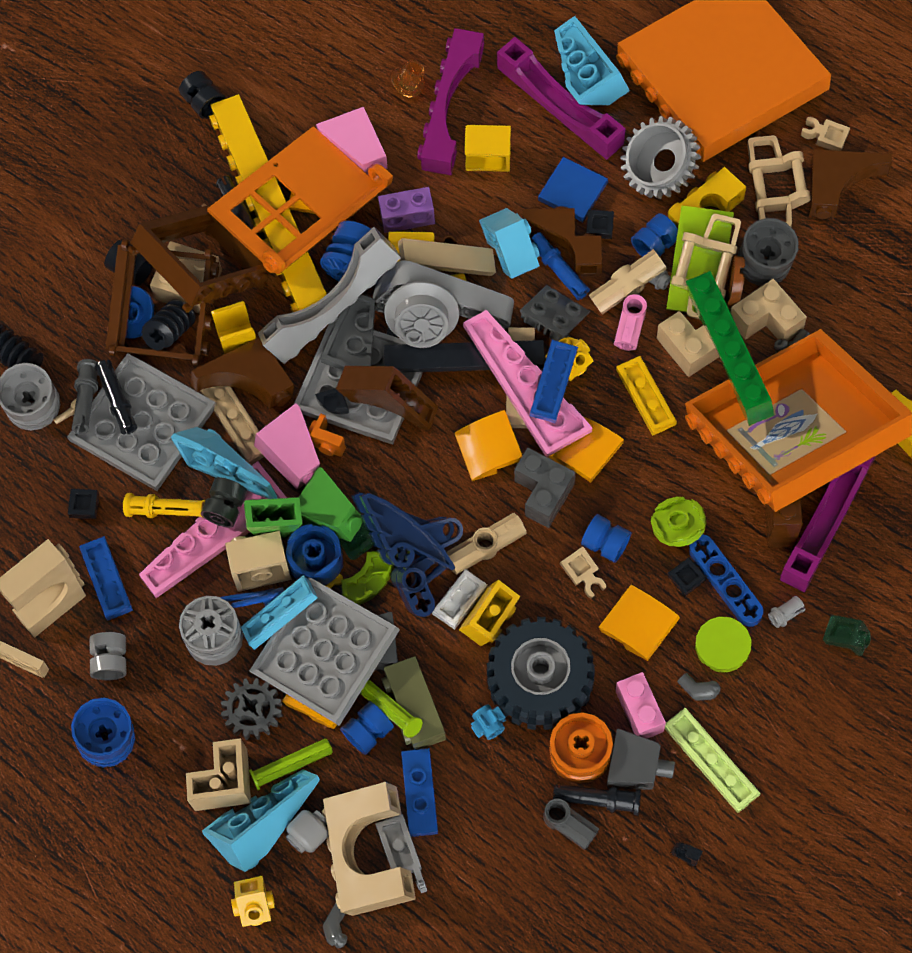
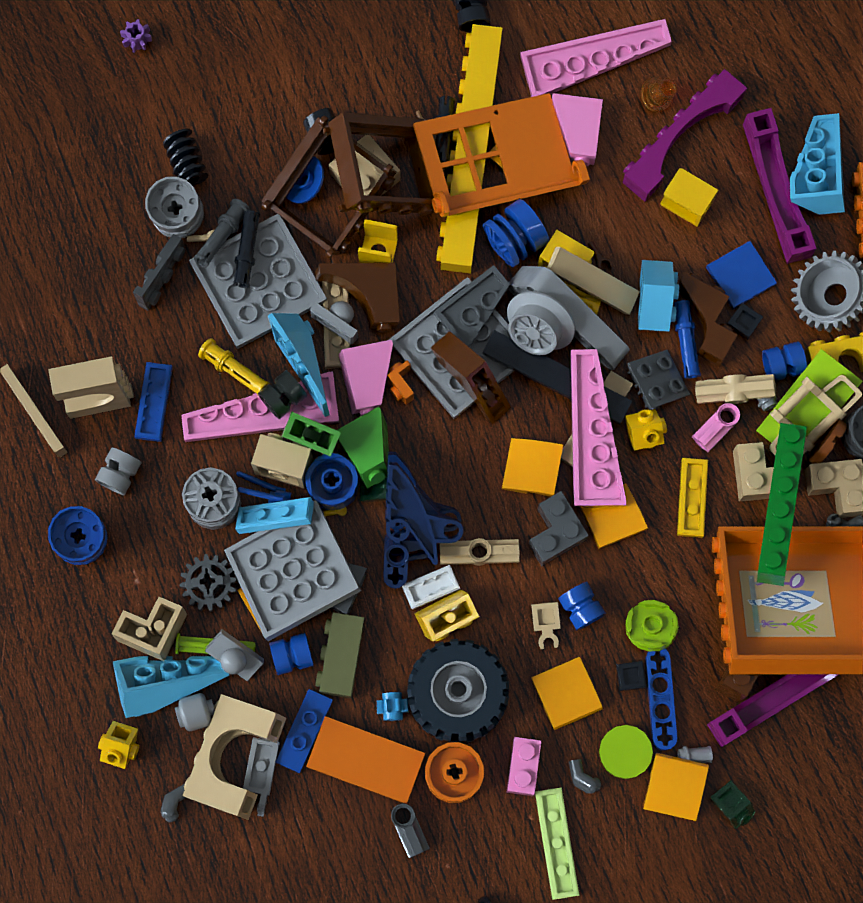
camera: 25 degrees right, 10 degrees up
(45, 483) = (155, 278): none -> dark grey wing
(83, 503) = (170, 326): black plate -> none
(167, 325) = (322, 209): black piece -> none
(235, 414) = (336, 319): none -> light grey tile
(292, 331) = (422, 273): light grey arch -> none
(314, 758) = (234, 655): none -> light grey tile
(326, 84) = (574, 61): none -> bright pink wing
(332, 401) = (423, 355): black tile -> none
(368, 580) = (363, 527): lime tile -> none
(397, 714) = (318, 652): lime axle -> none
(406, 210) = (585, 215): medium lavender brick -> none
(492, 784) = (365, 760): none -> orange tile
(553, 381) = (616, 446): blue plate -> none
(612, 798) = (454, 828): black pin -> none
(636, 762) = (493, 811): dark grey torso -> none
(786, 647) = (676, 786): none -> light orange slope

